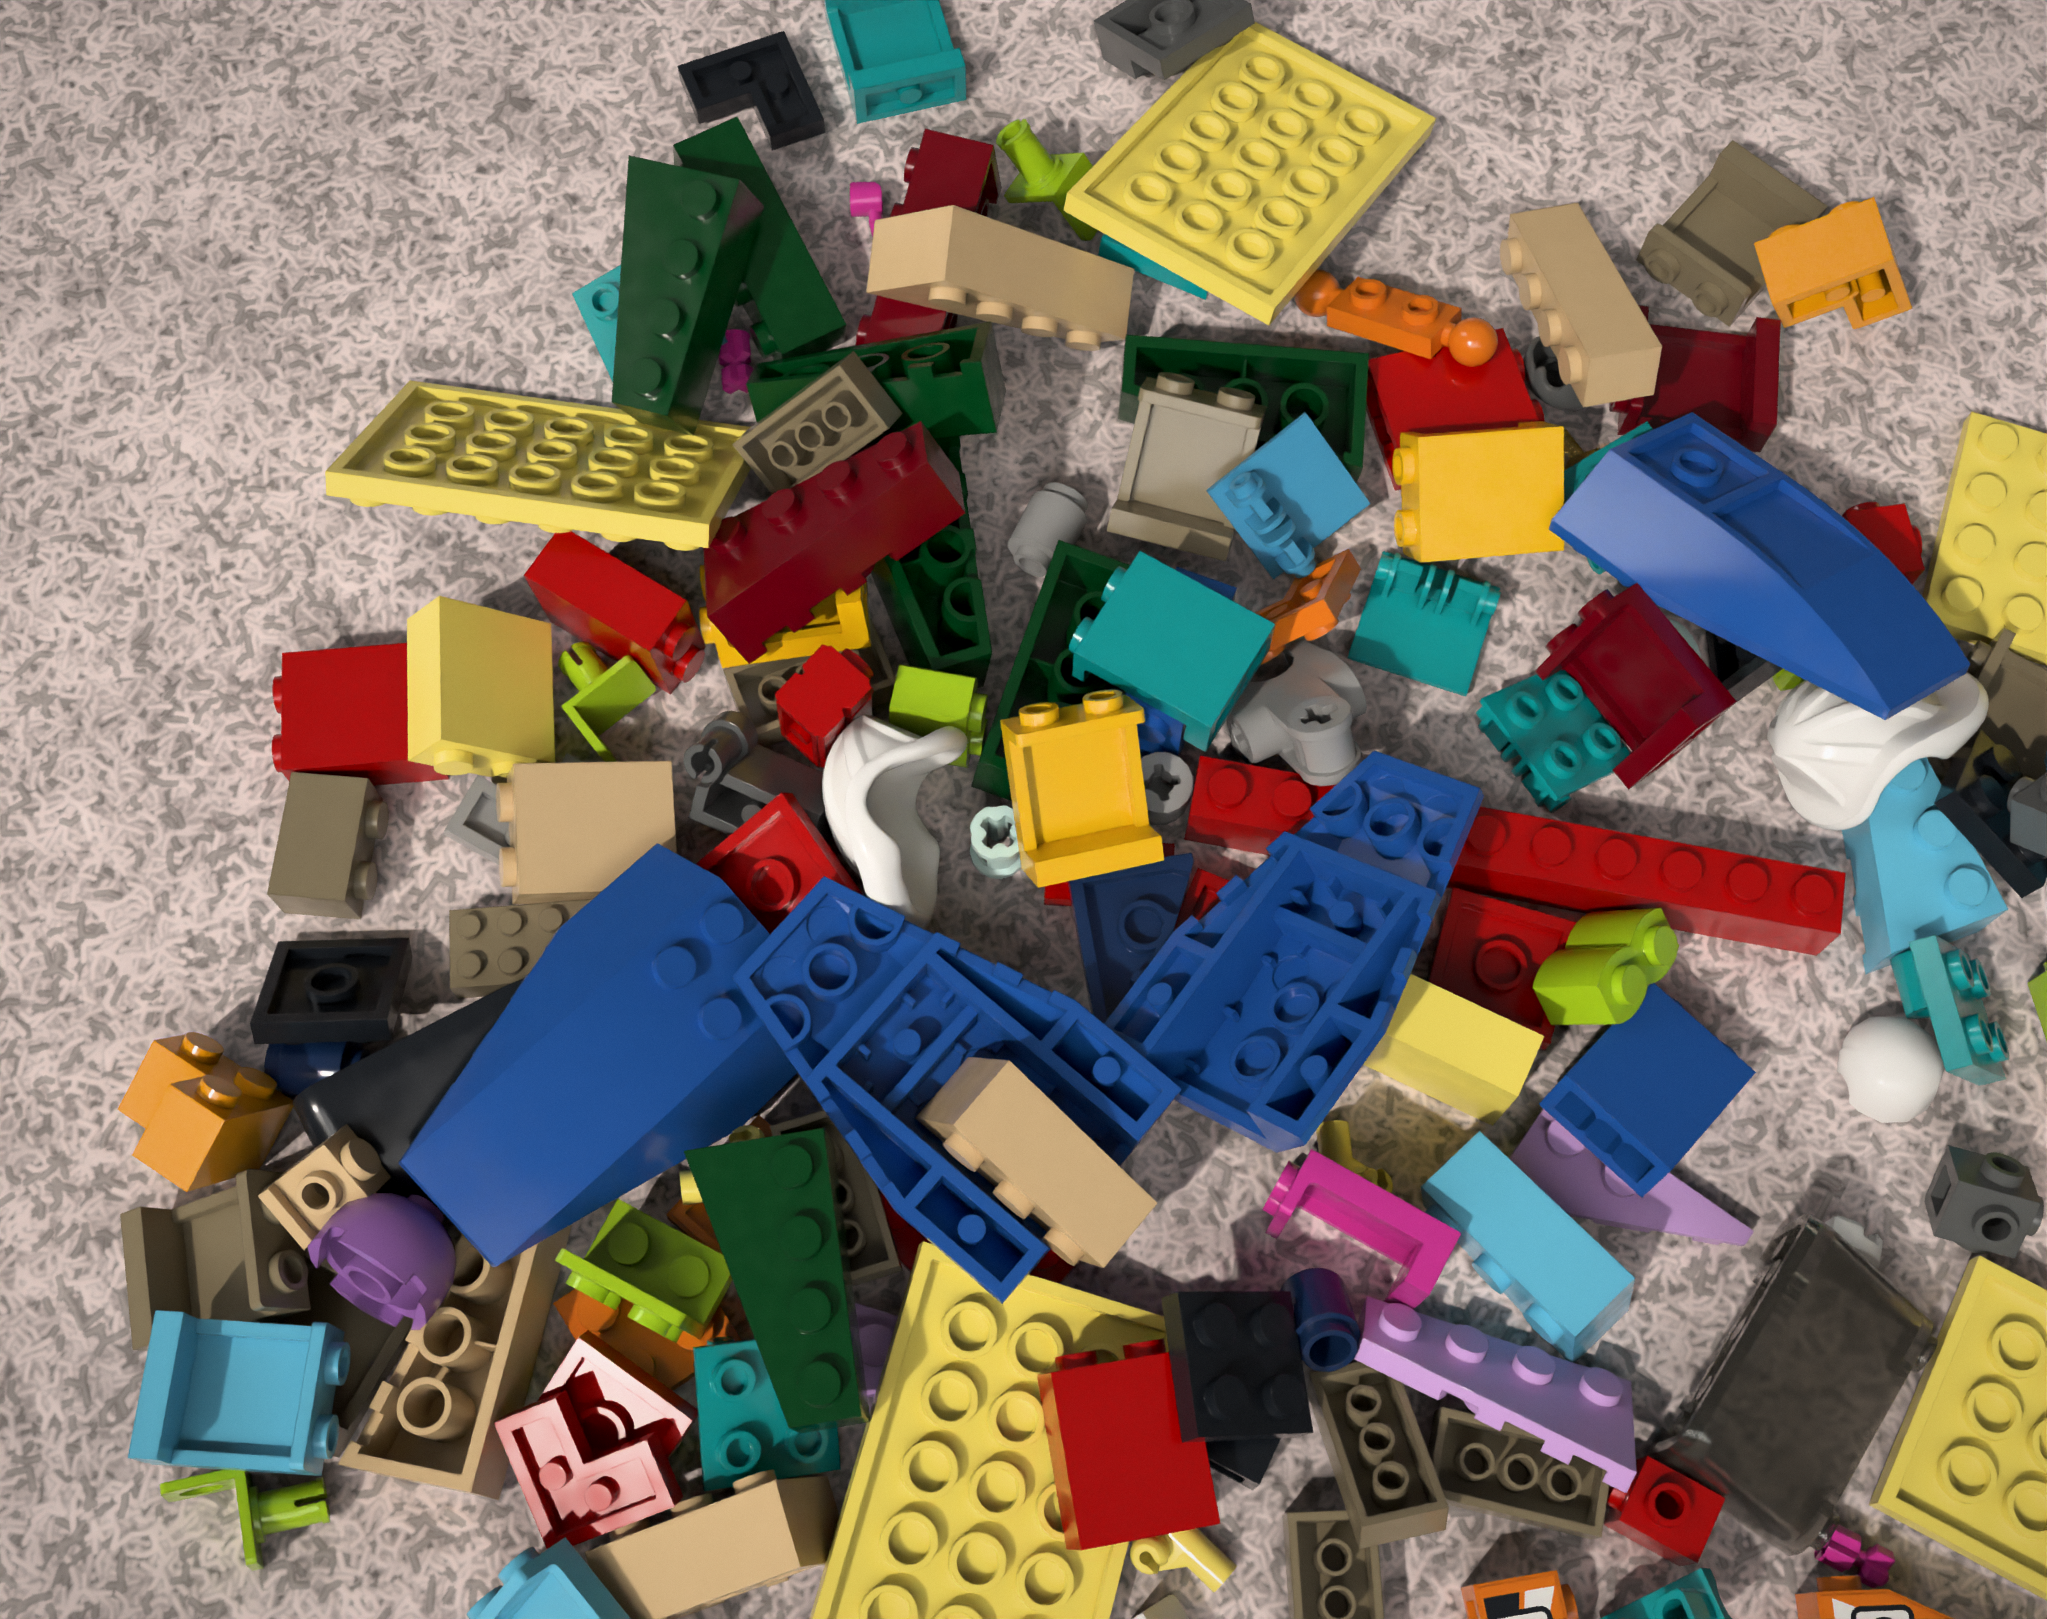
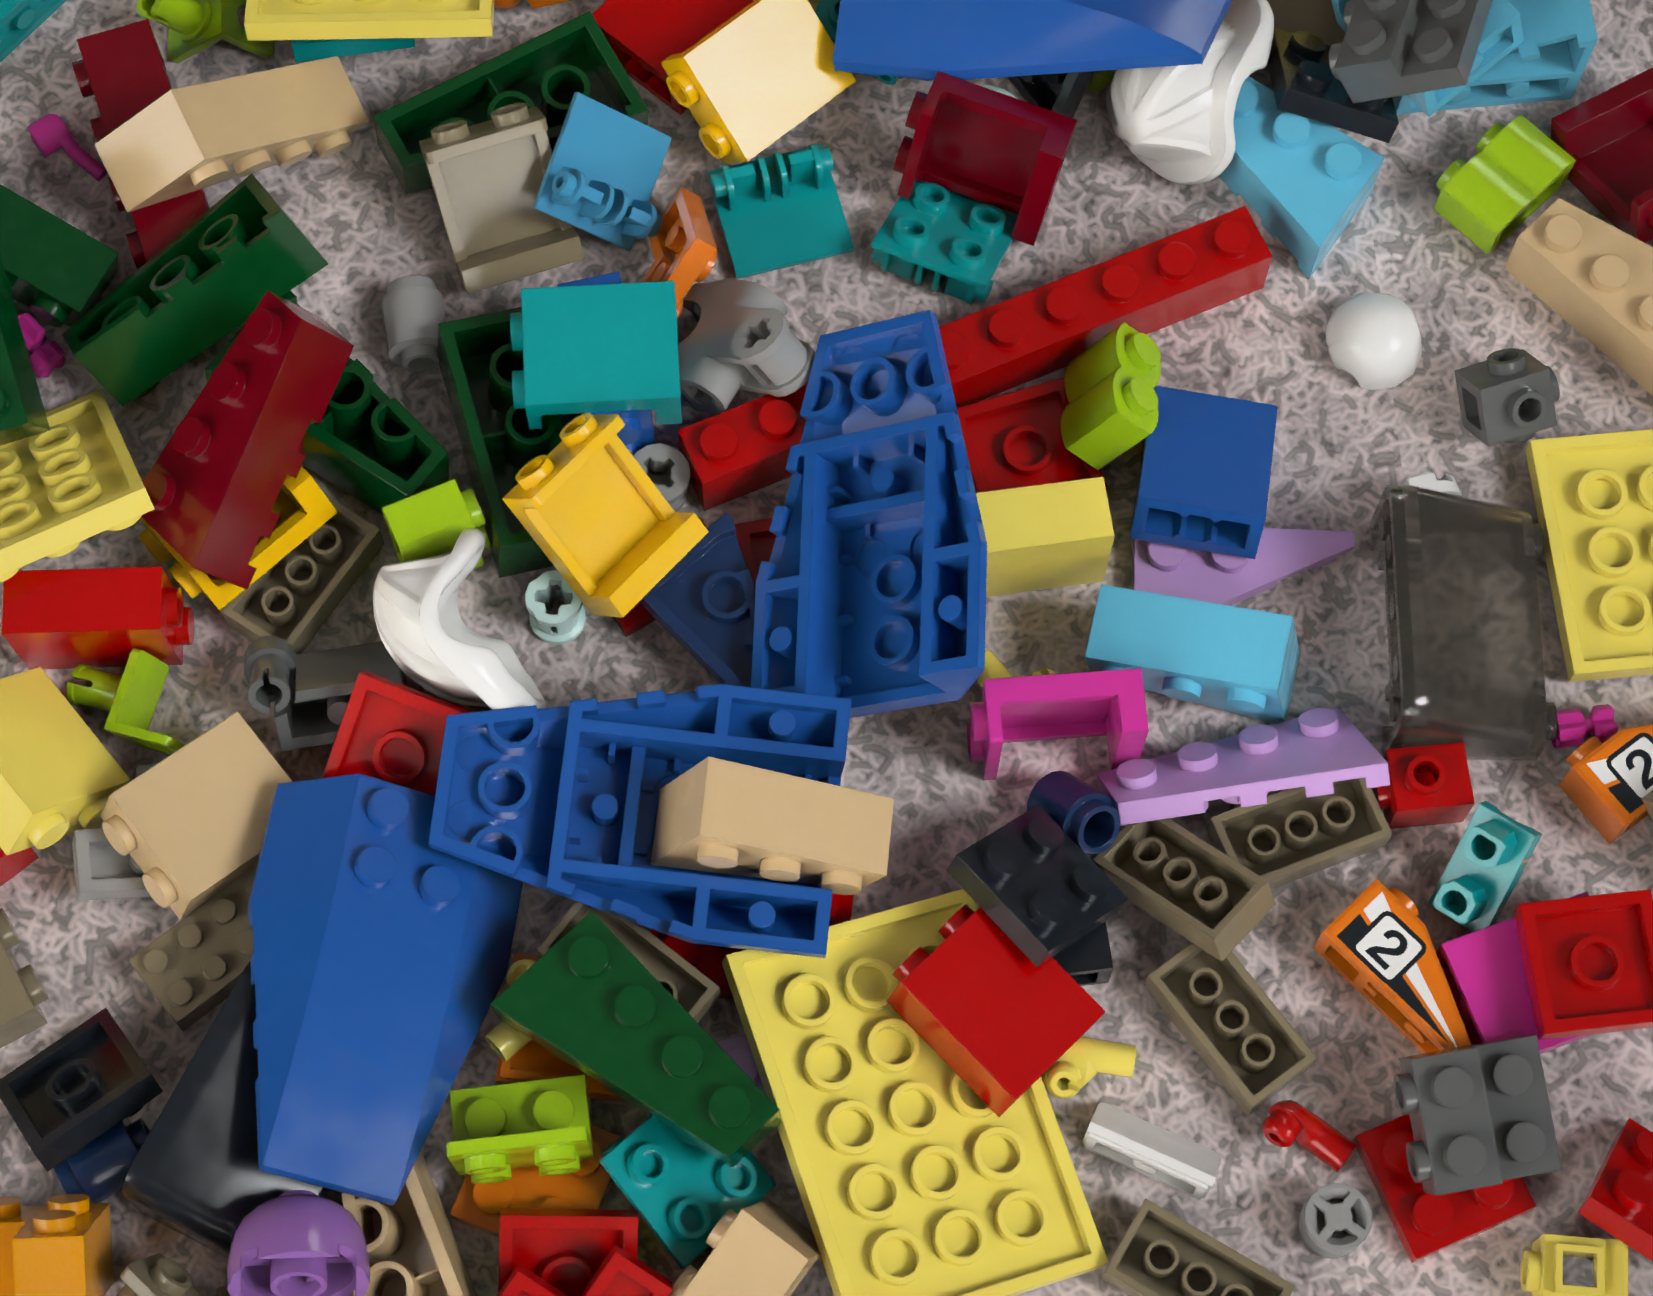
camera: 35 degrees left, 0 degrees up
(322, 1182) = (195, 1258): tan brick -> none
(818, 425) = (166, 354): dark tan piece -> none
(824, 700) = (341, 580): red brick -> none
(1949, 988) = (1378, 248): teal plate -> none

